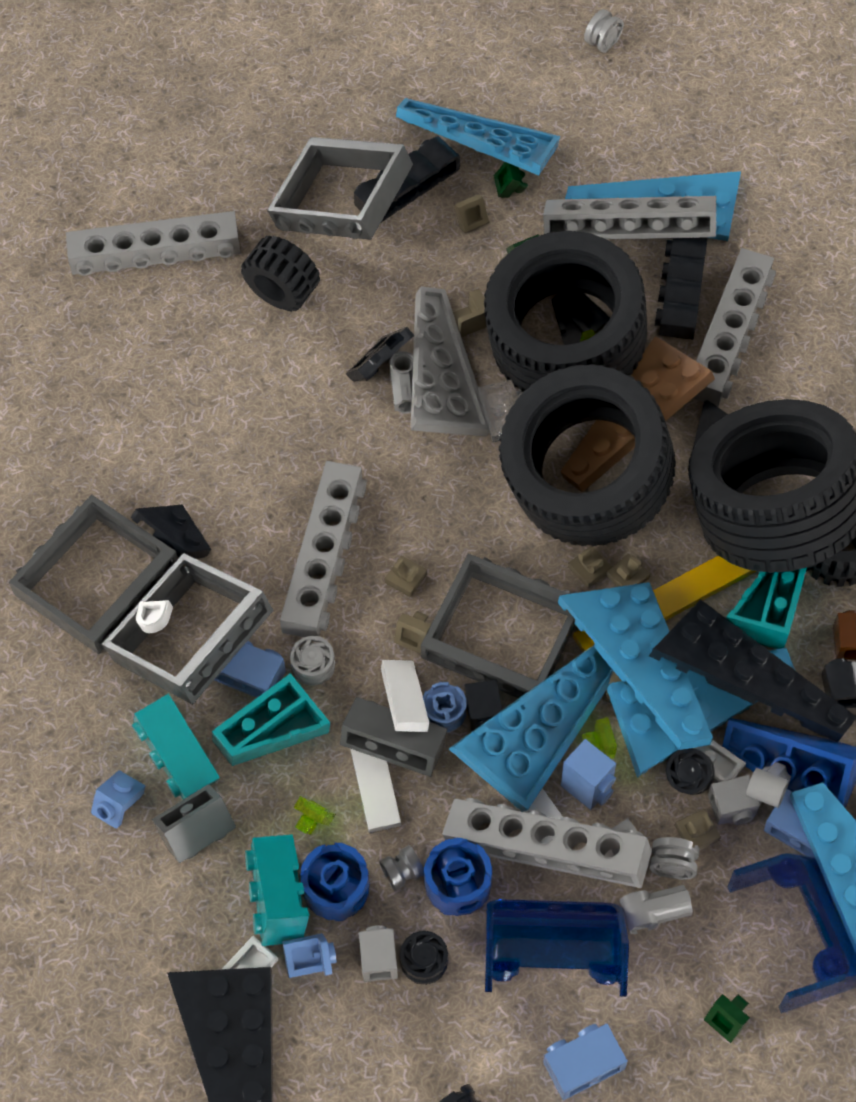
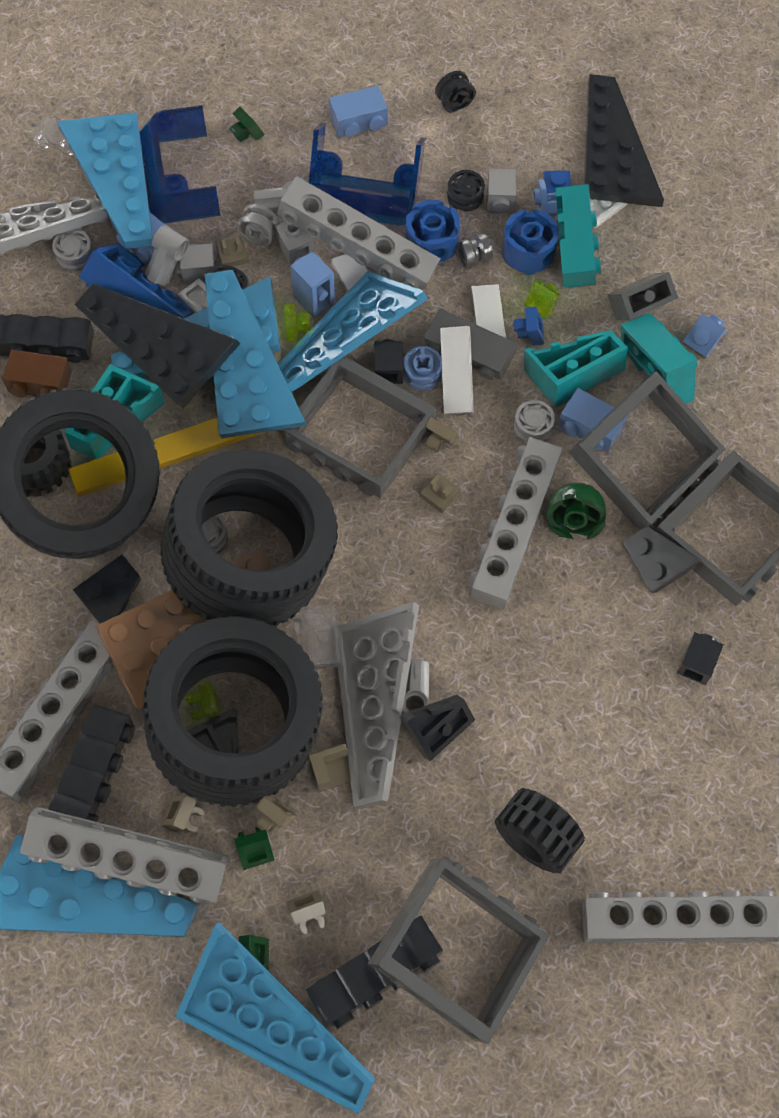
camera: 175 degrees left, 5 degrees up
(134, 444) = (700, 658): none -> black brick
(153, 615) = (680, 458): white tile -> none
(260, 564) = (577, 507): none -> dark green cylinder
(306, 993) = (556, 179): none -> blue plate
(323, 774) = (531, 326): none -> blue tile

